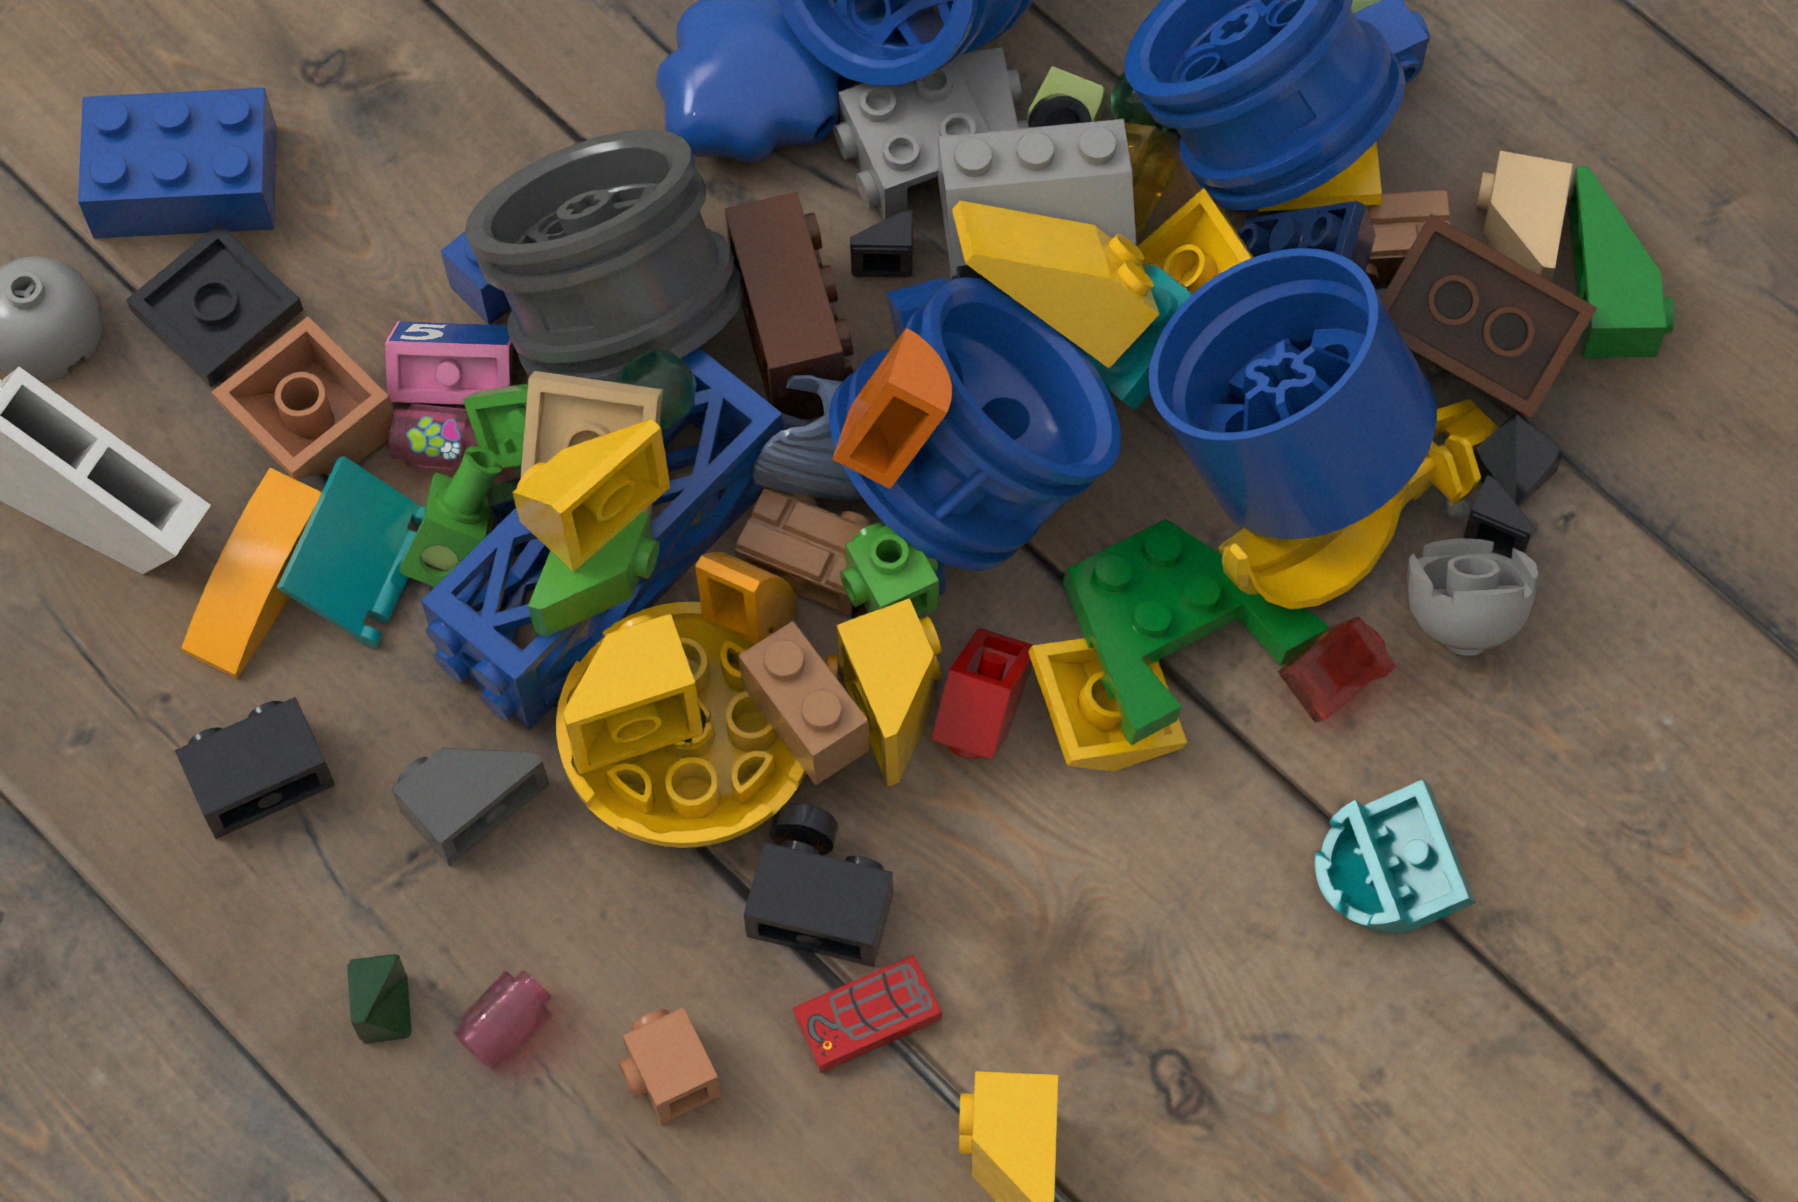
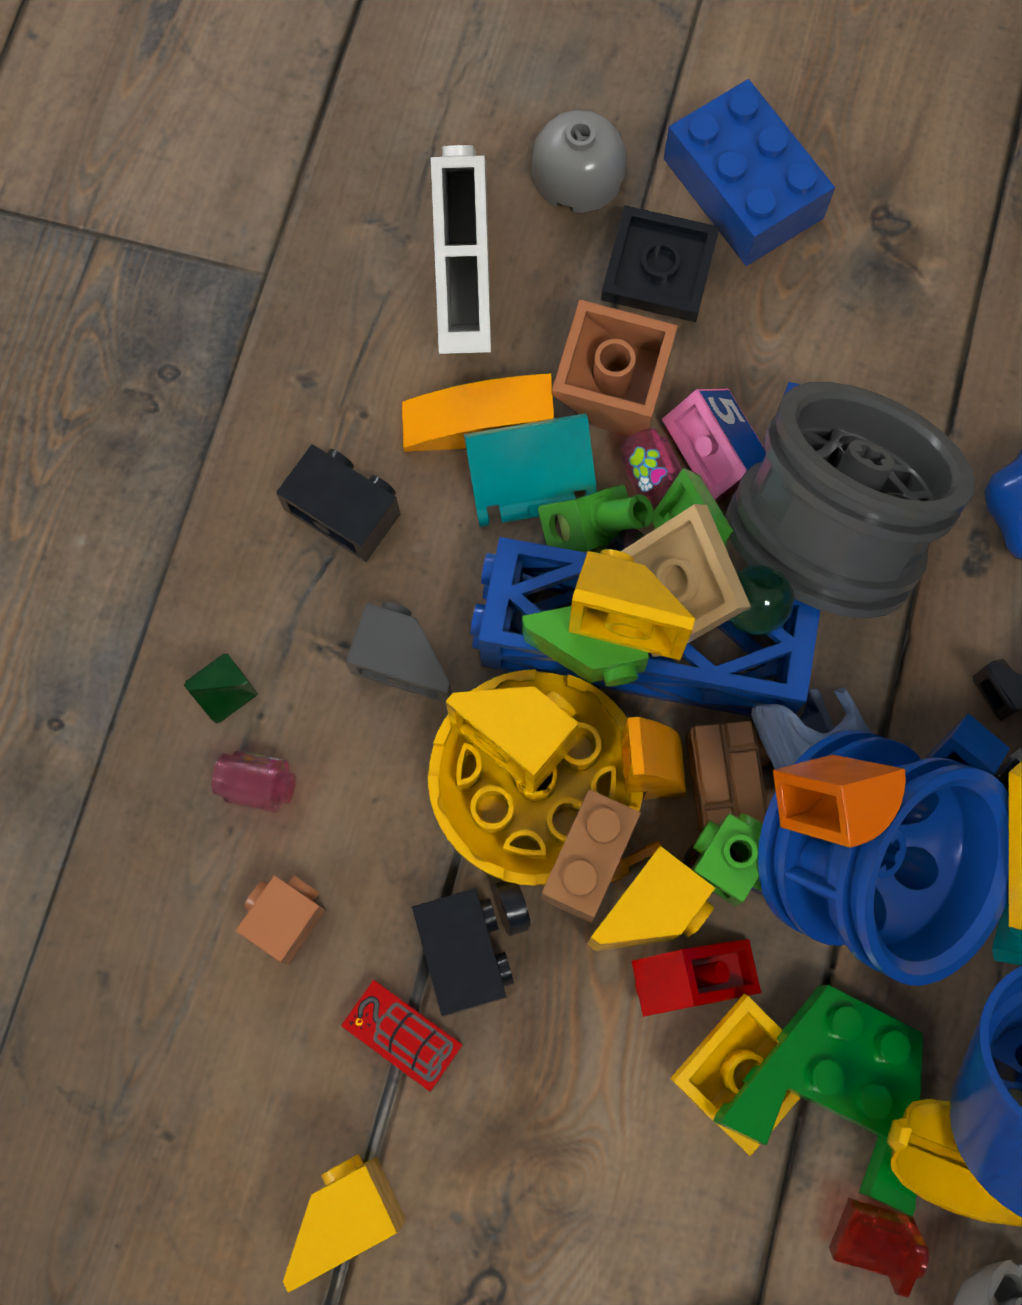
camera: 60 degrees right, 10 degrees up
(788, 300) = (911, 647): reddish brown brick -> none

